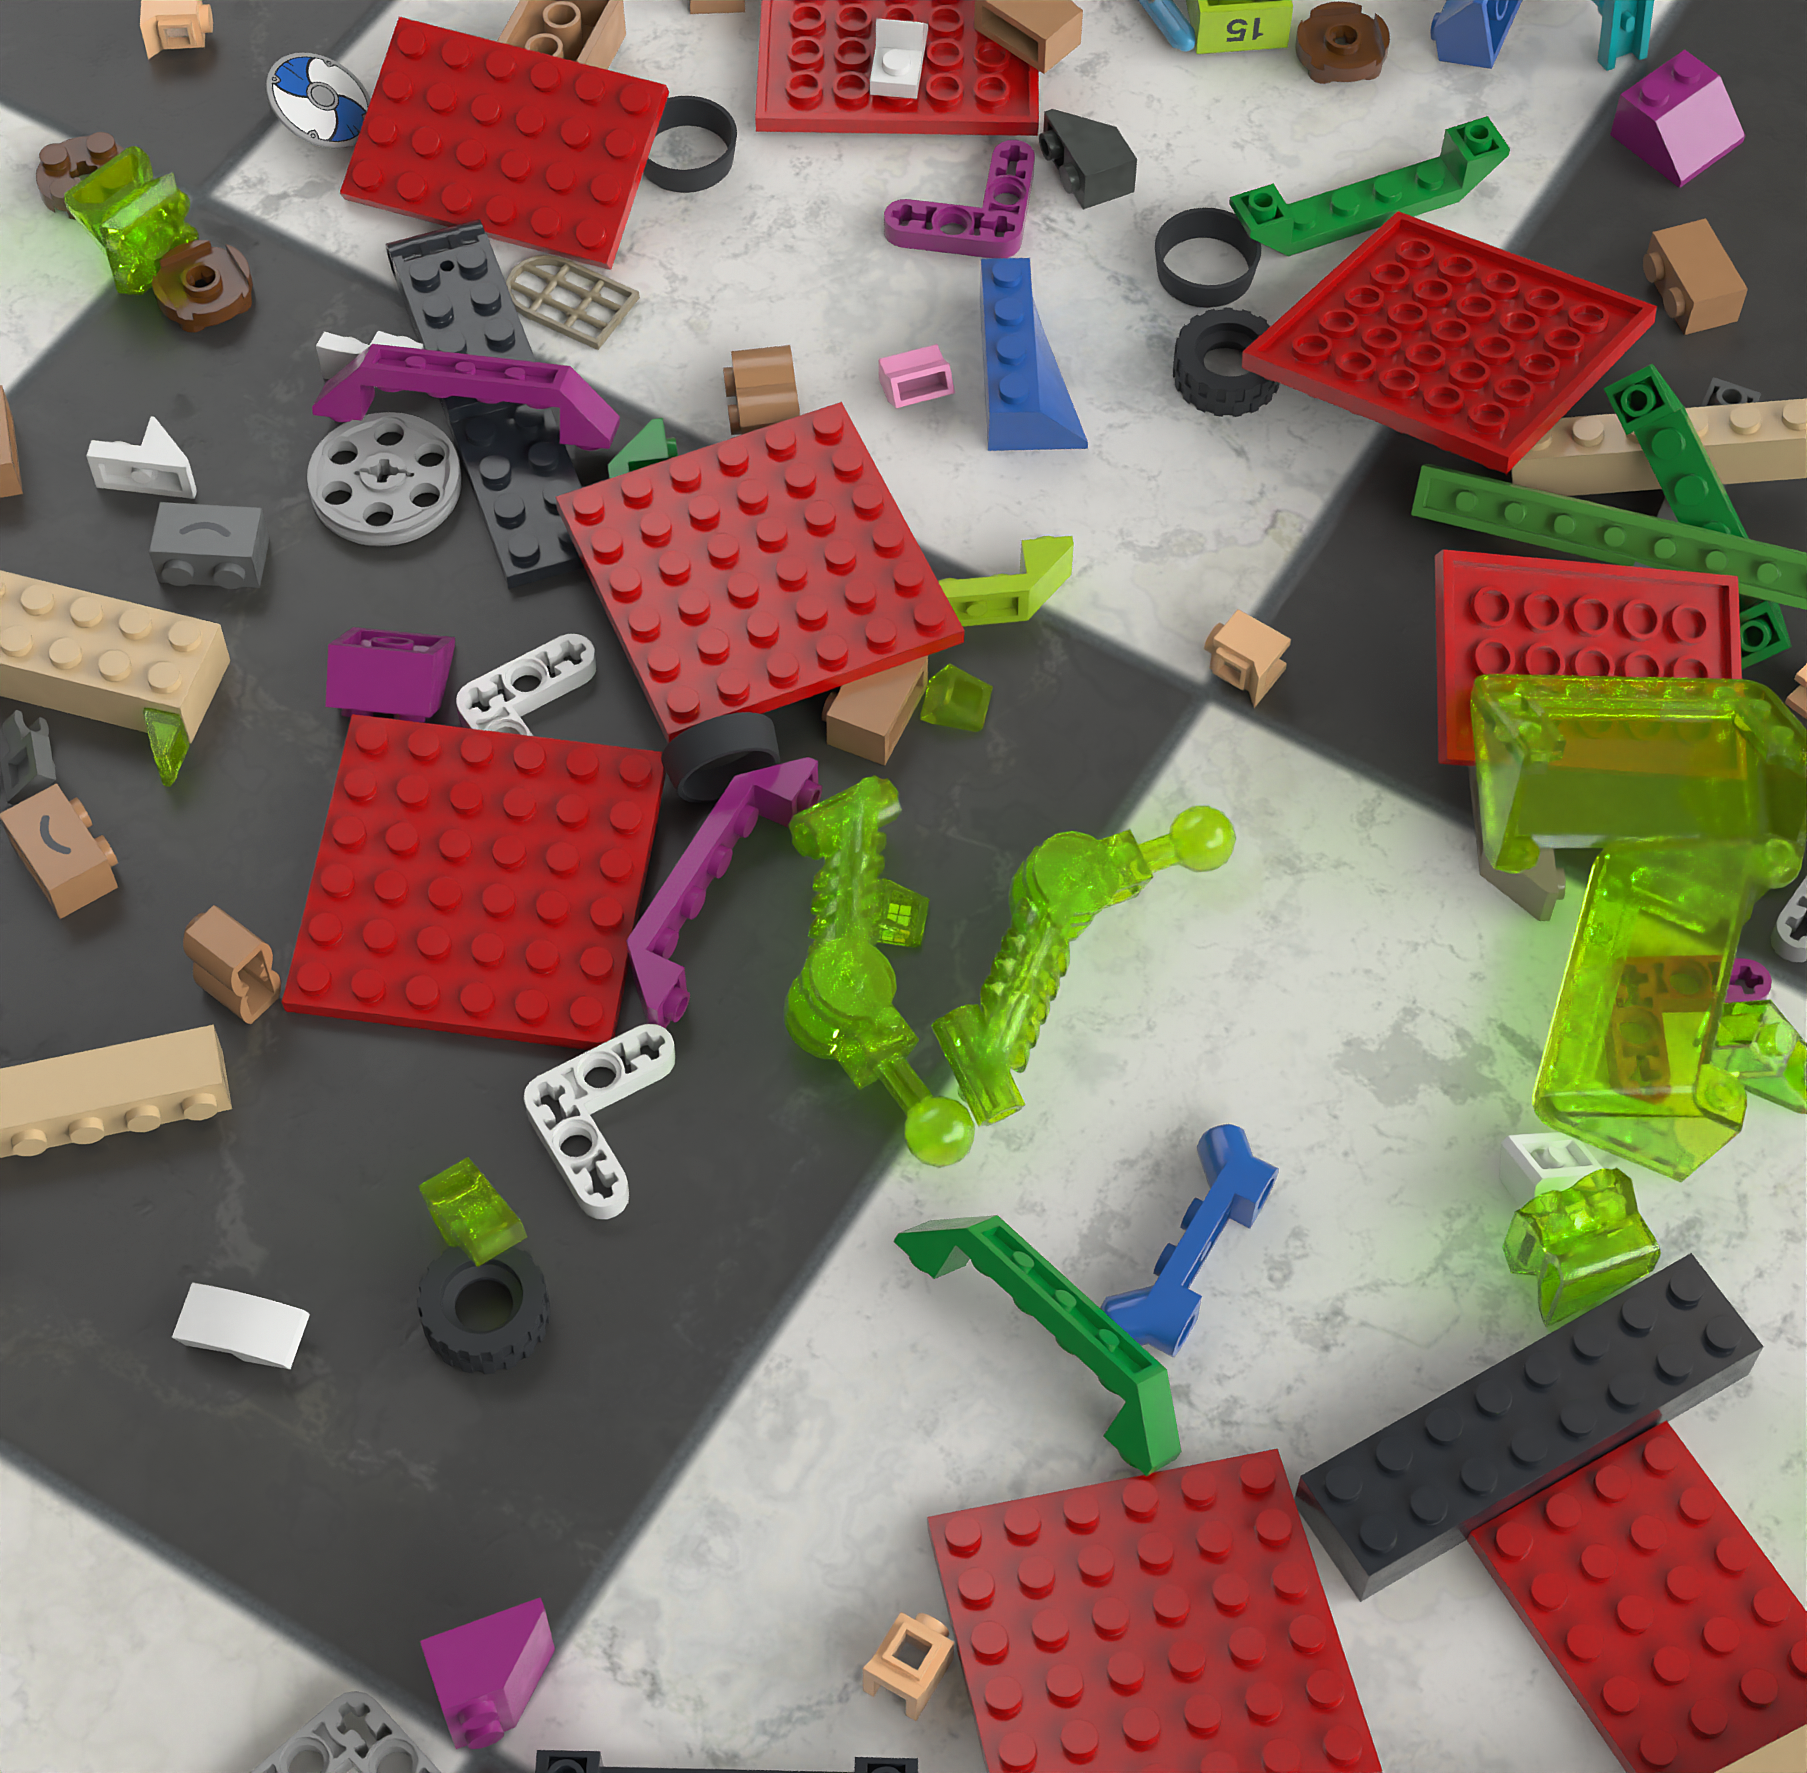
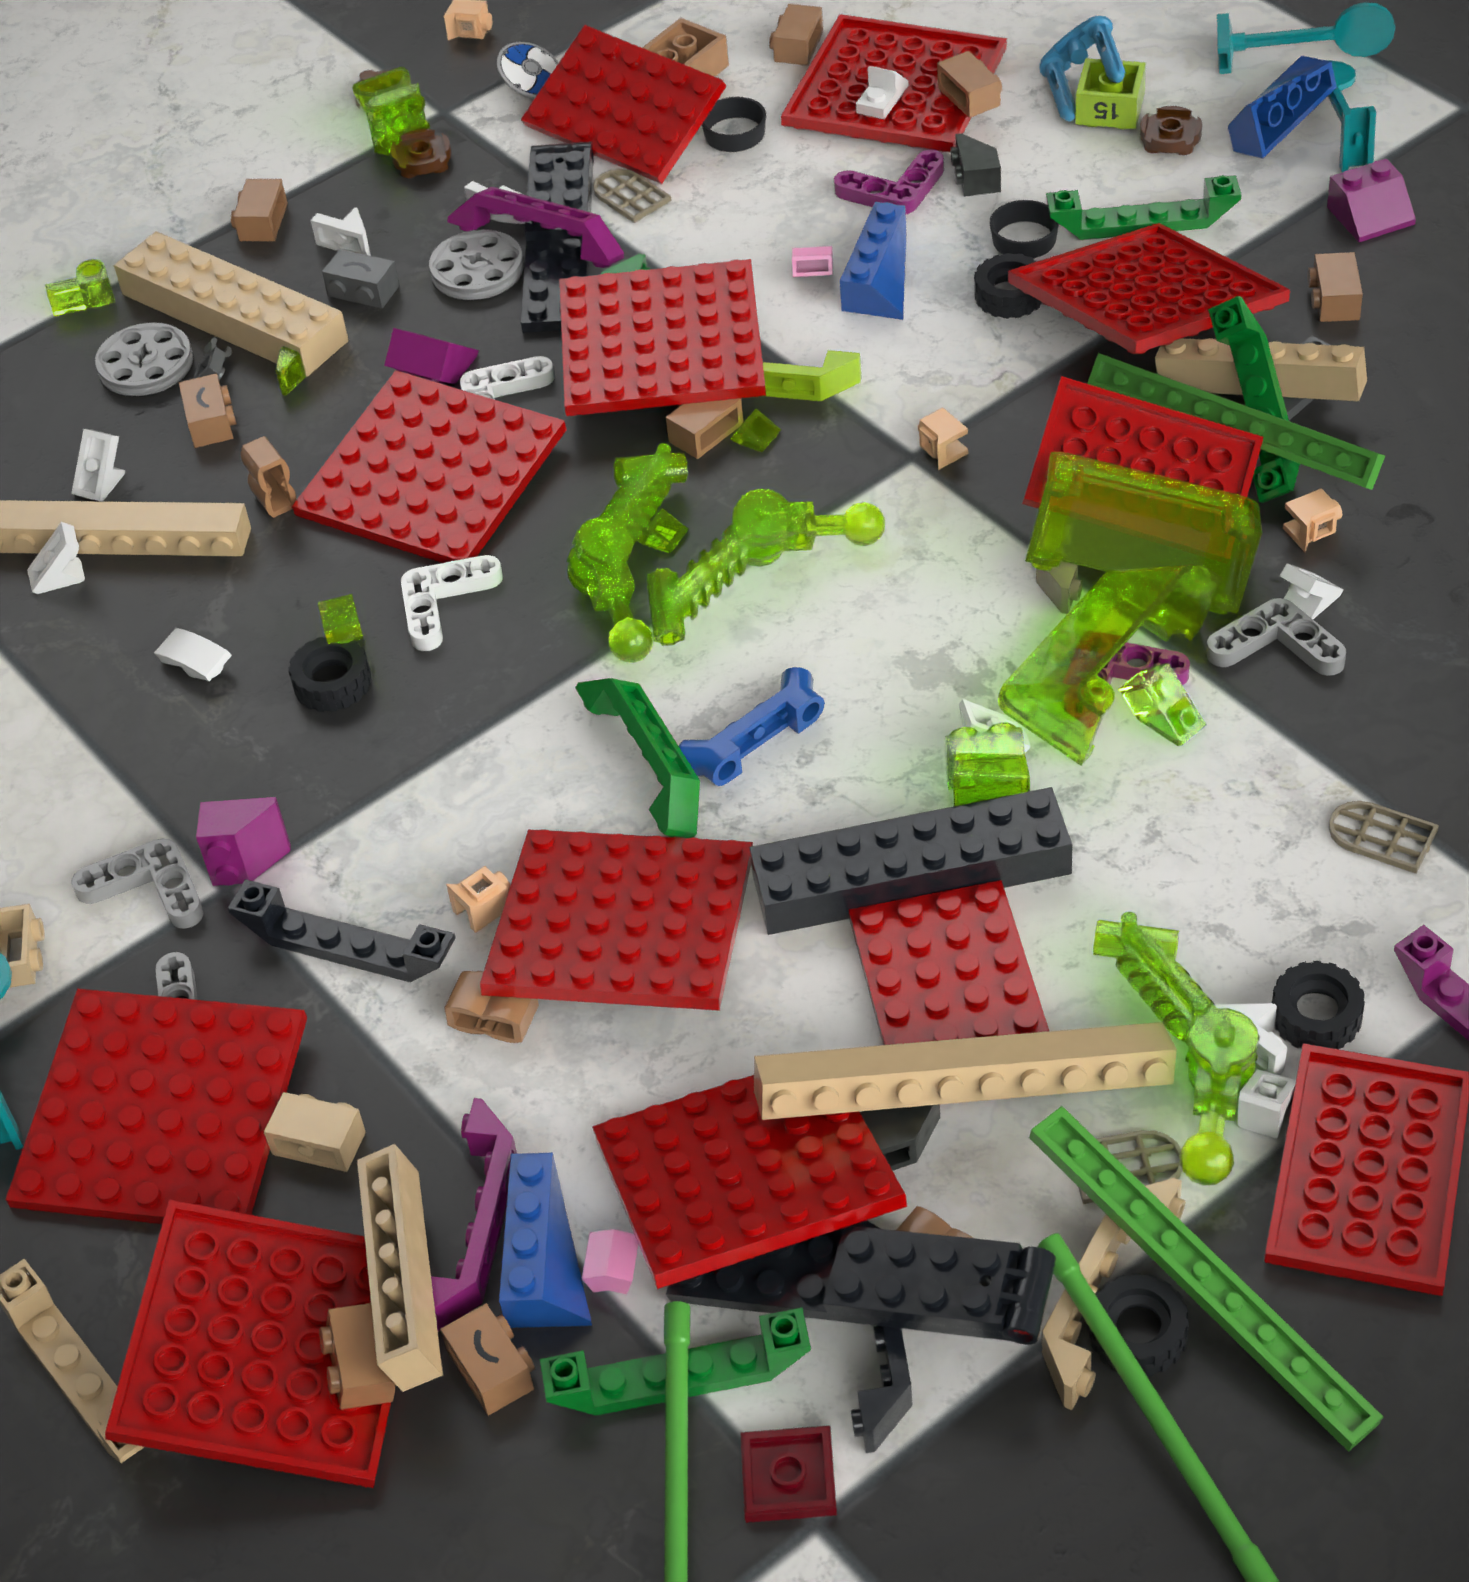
camera: 25 degrees right, 10 degrees down
(713, 740) = (599, 407): black tyre -> none
(762, 387) = (716, 247): medium nougat brick -> none
(769, 792) = (554, 487): magenta slope -> none

